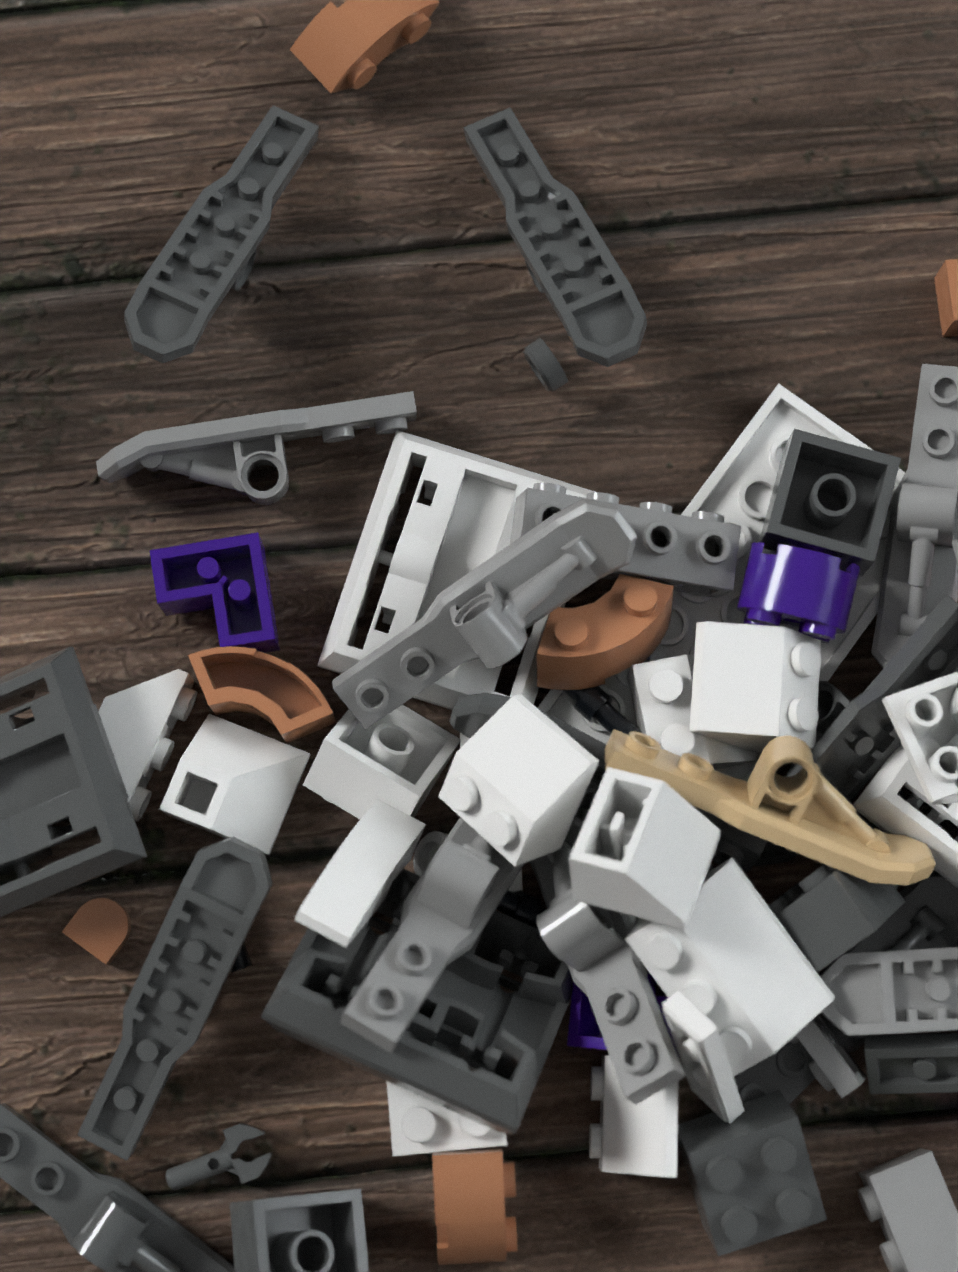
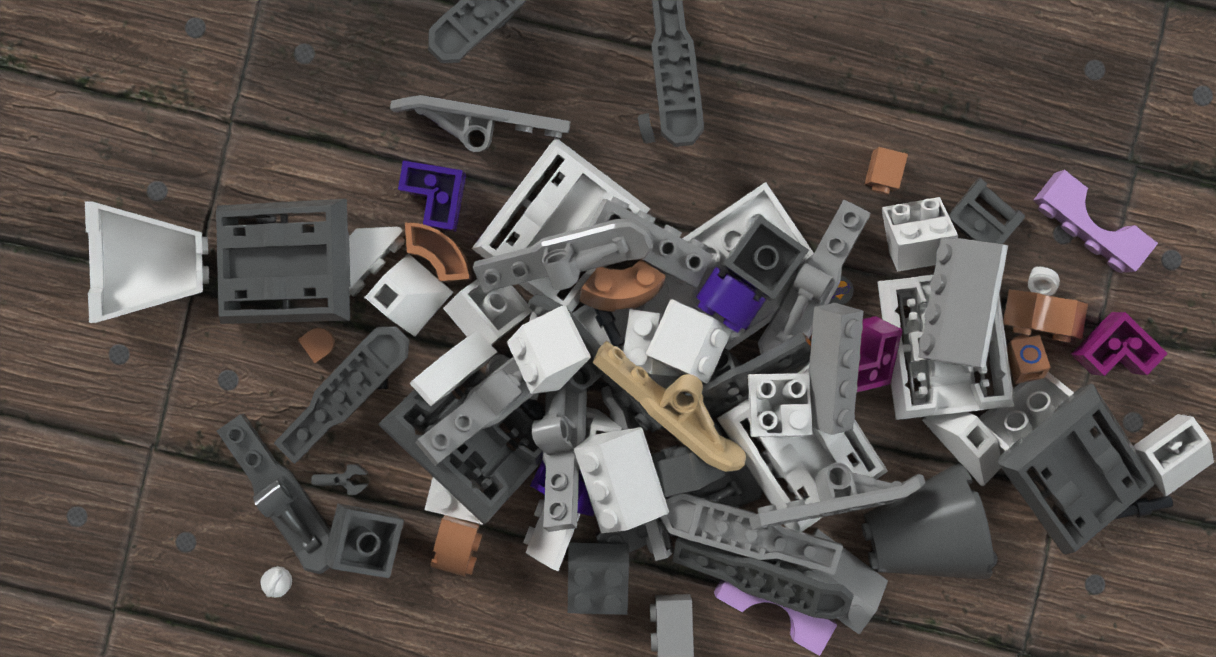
camera: 25 degrees right, 10 degrees up
(642, 850) = (596, 410): white slope -> none
(703, 1057) = (591, 519): white tile -> none

